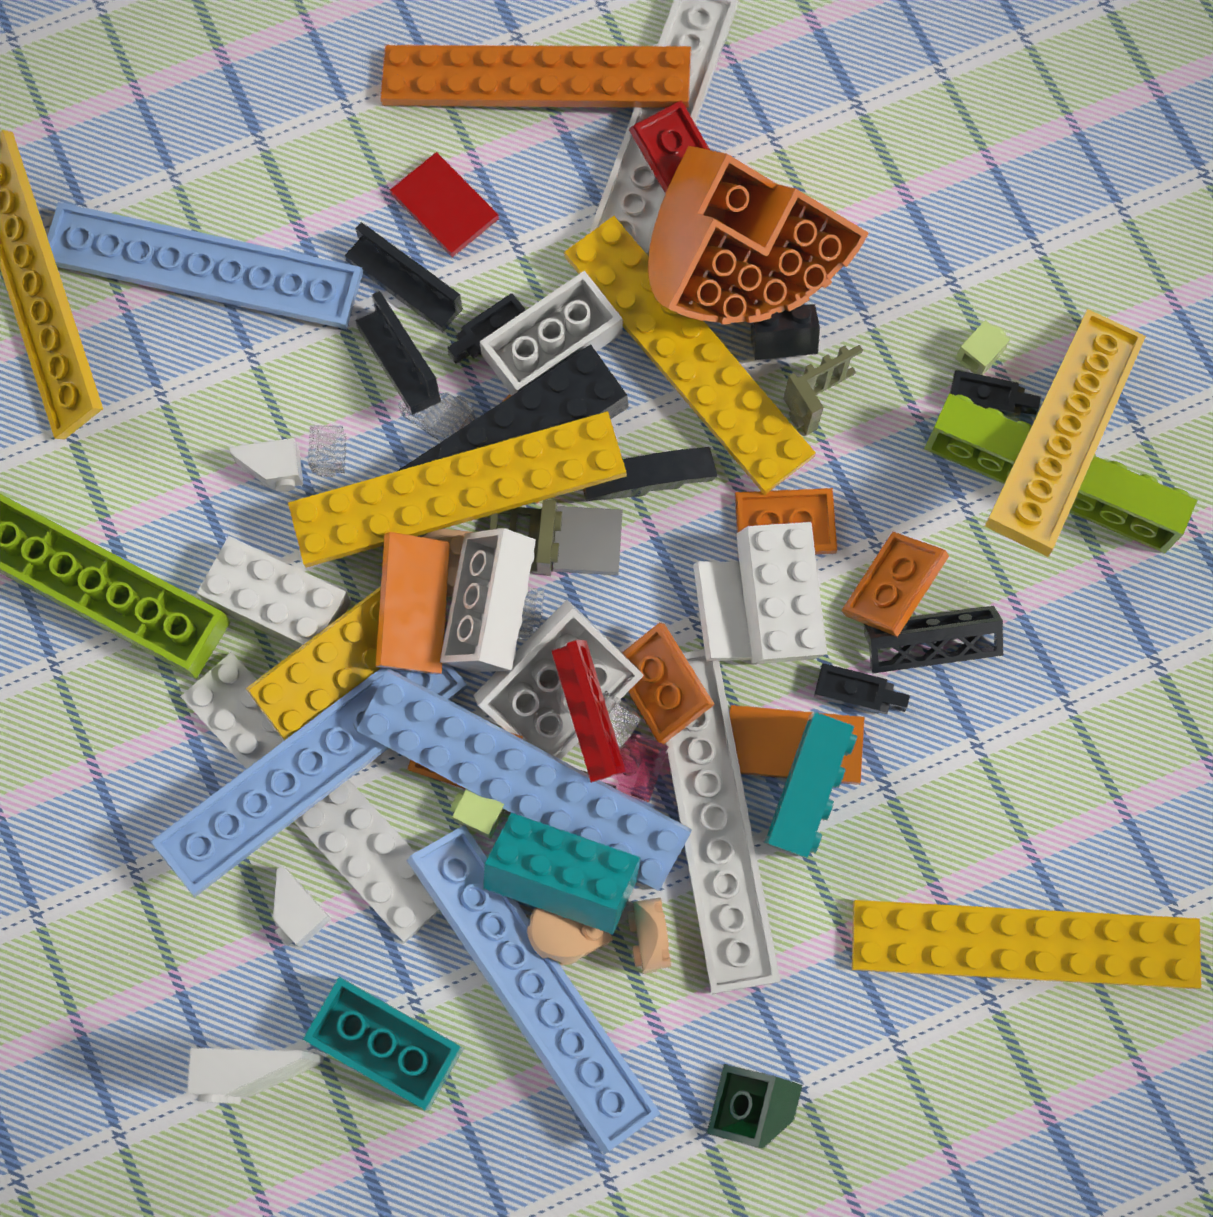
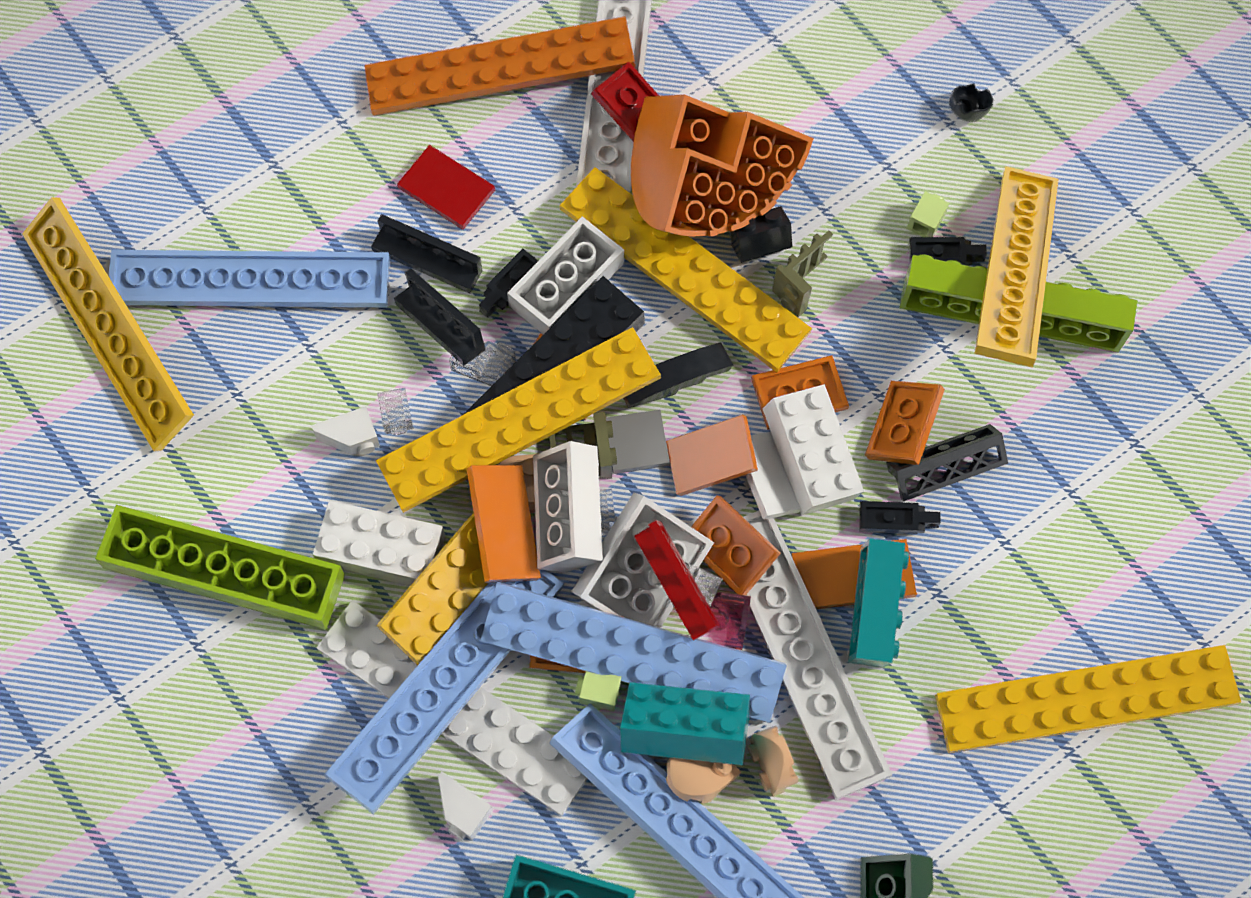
camera: 15 degrees left, 5 degrees down
(666, 575) = (711, 455): none -> orange tile
(1065, 225) = (970, 103): none -> black hair

